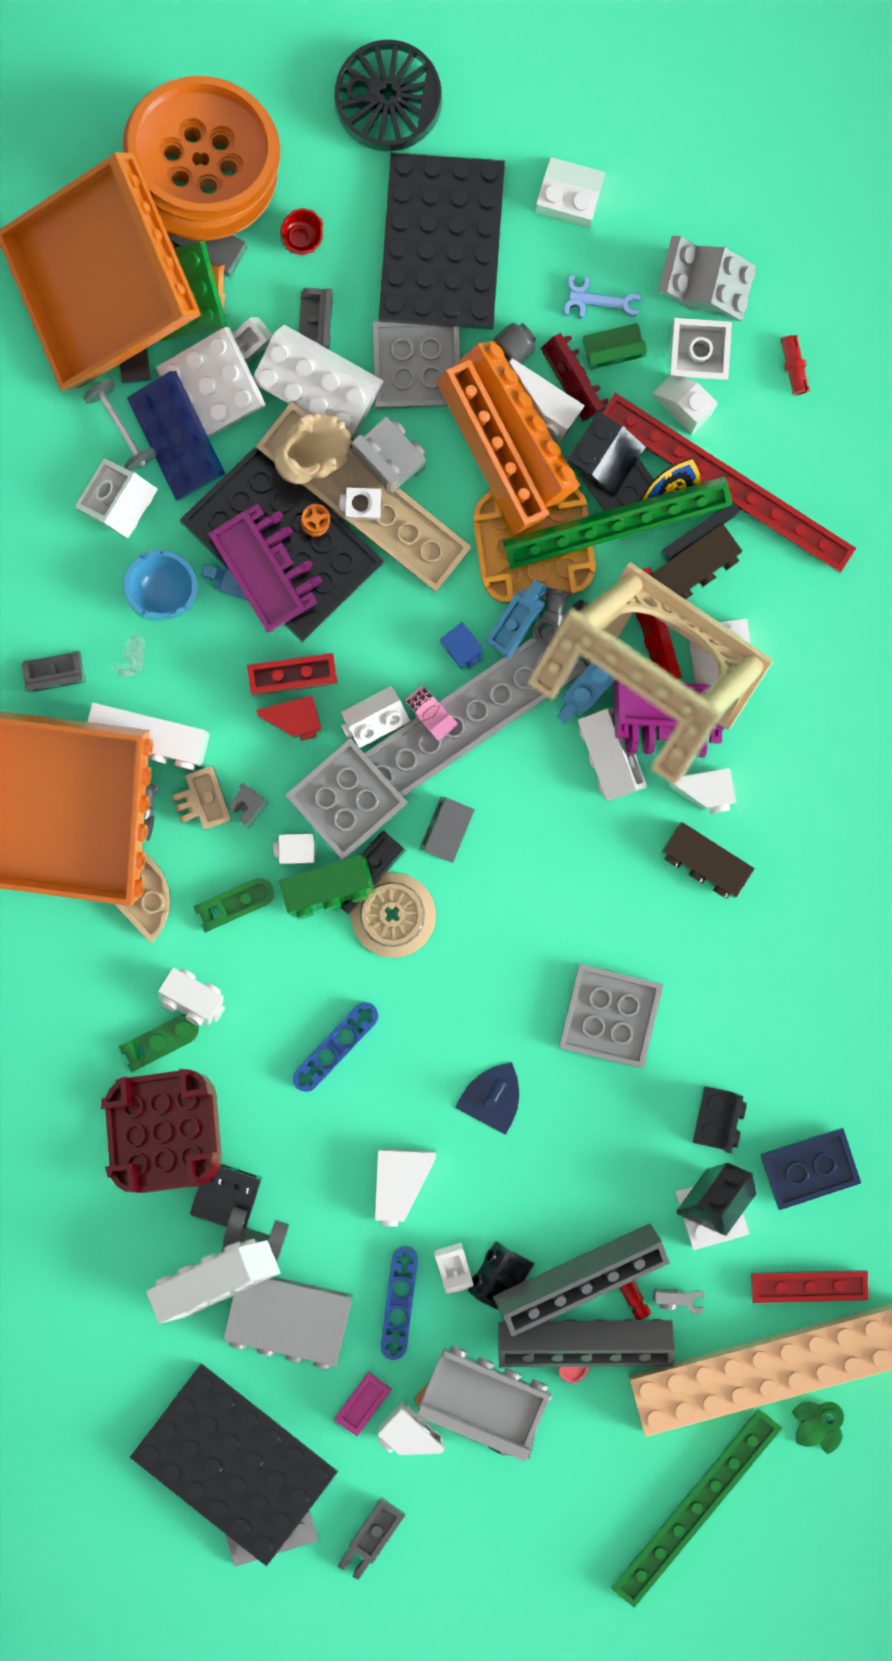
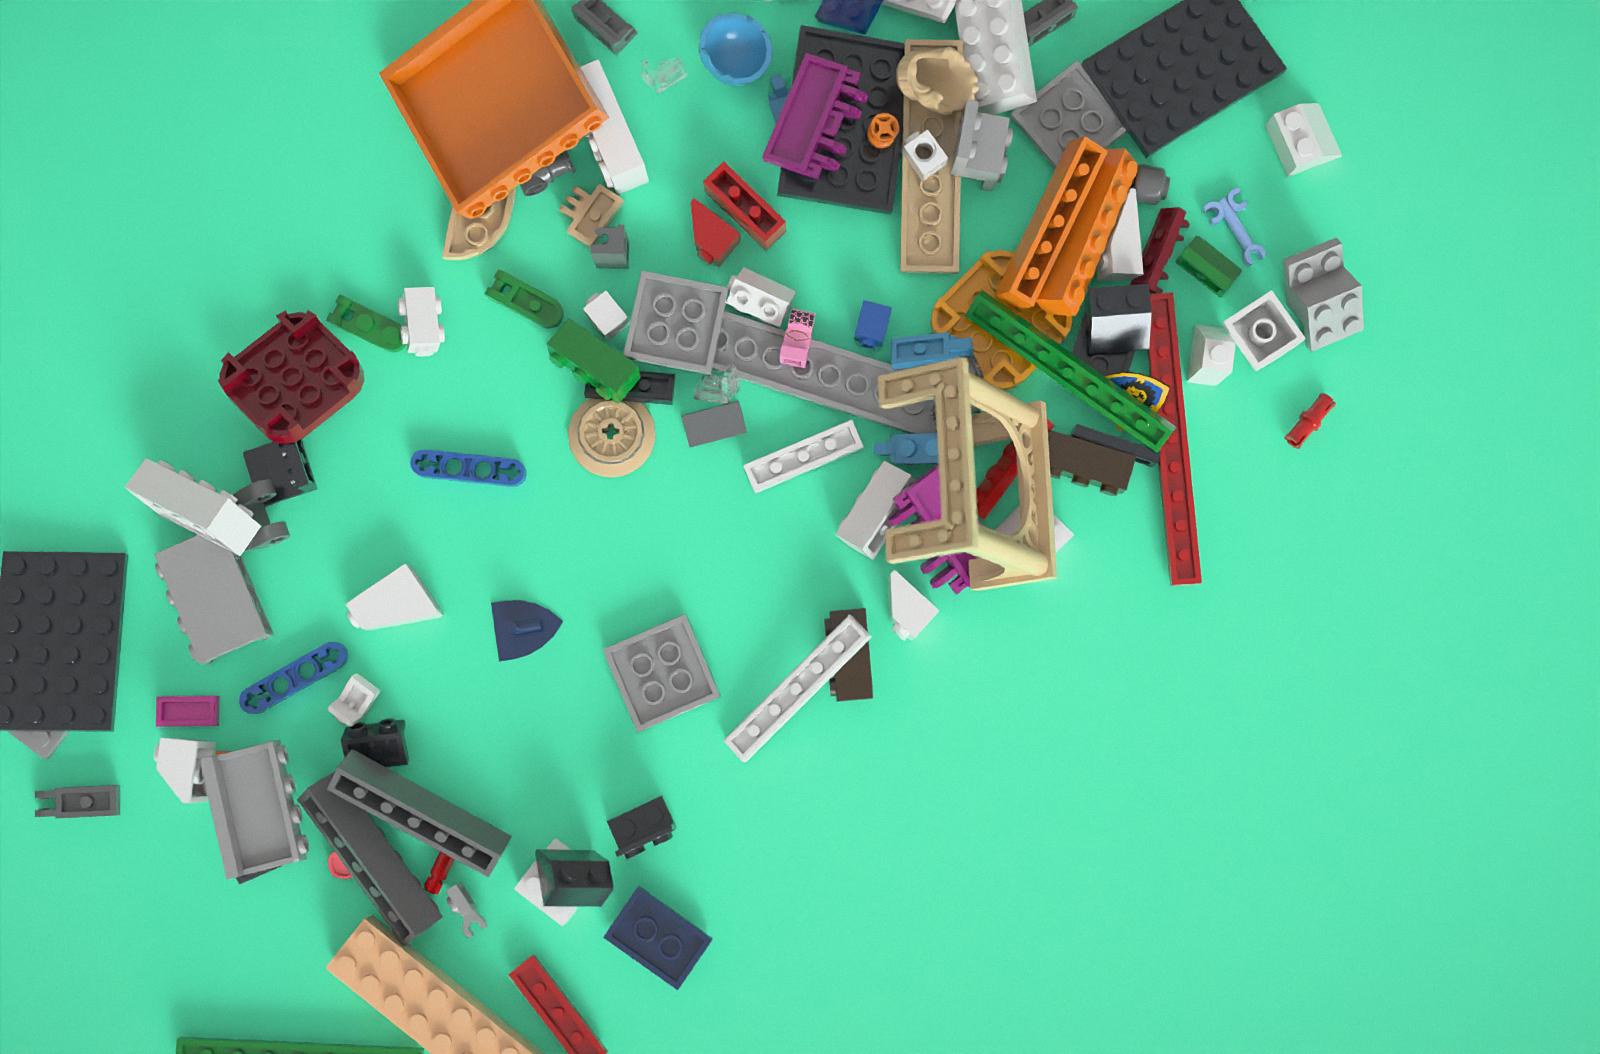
camera: 55 degrees right, 5 degrees down
(422, 805) = (718, 389): none -> clear bracket
(525, 779) = (803, 456): none -> white plate
(703, 920) = (797, 688): none -> white tile

